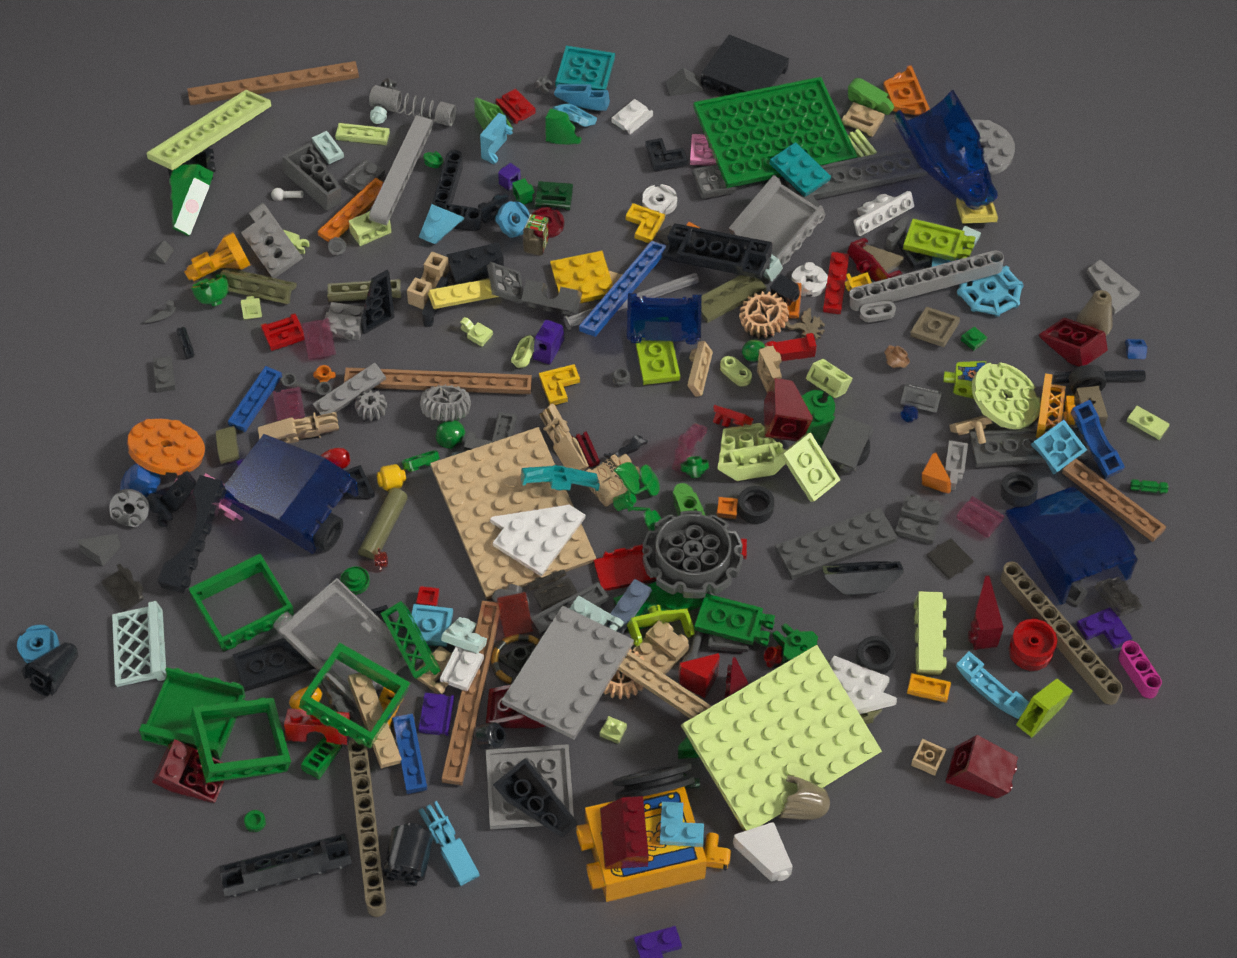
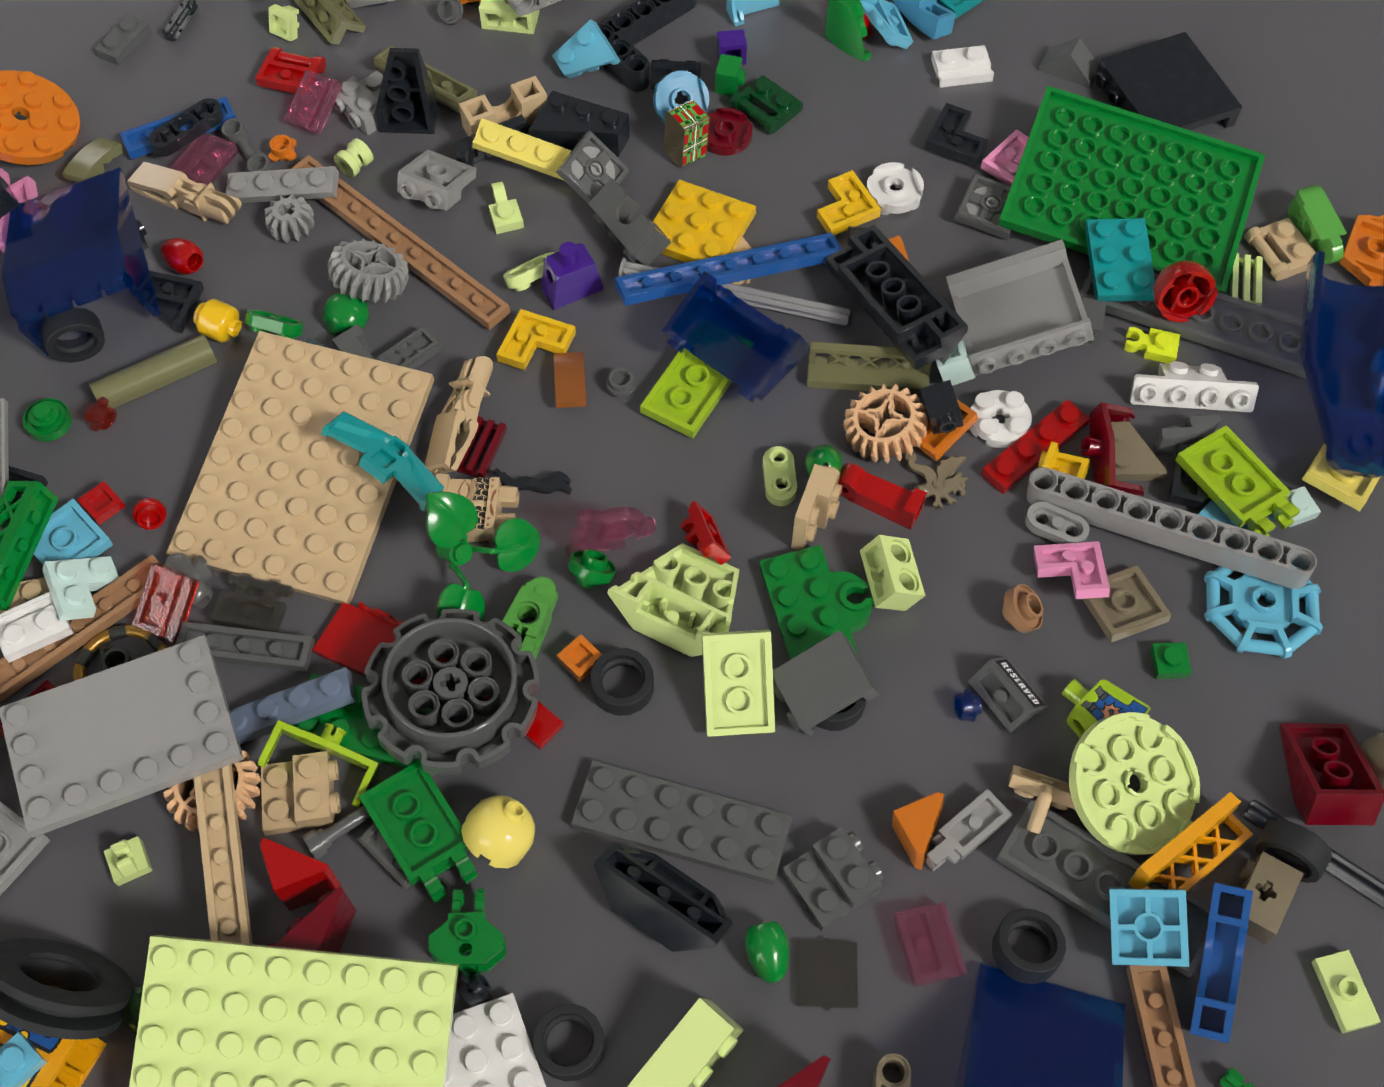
camera: 40 degrees right, 5 degrees up
(267, 401) = (197, 111): none -> black beam
(370, 354) = (353, 158): none -> yellowish green wheel
(427, 338) = (434, 180): none -> light grey plate
(457, 585) = (149, 513): none -> red plate
(536, 535) = (293, 517): white wing -> none
(595, 613) = (248, 683): light aqua plate -> none
(596, 390) = (569, 380): none -> dark orange slope
(701, 361) = (730, 439): tan hinge -> none
(769, 594) = (499, 831): none -> light yellow cylinder
(773, 655) = (427, 922): red plate -> none
(785, 412) = (767, 577): dark red slope -> none
(843, 166) = (1184, 290): none -> red cylinder
(847, 200) = (1157, 344): none -> neon yellow plate
(902, 320) = (1080, 561): none -> bright pink plate
(921, 564) = (767, 950): none -> green animal
(1068, 405) = (1225, 876): light orange plate -> none

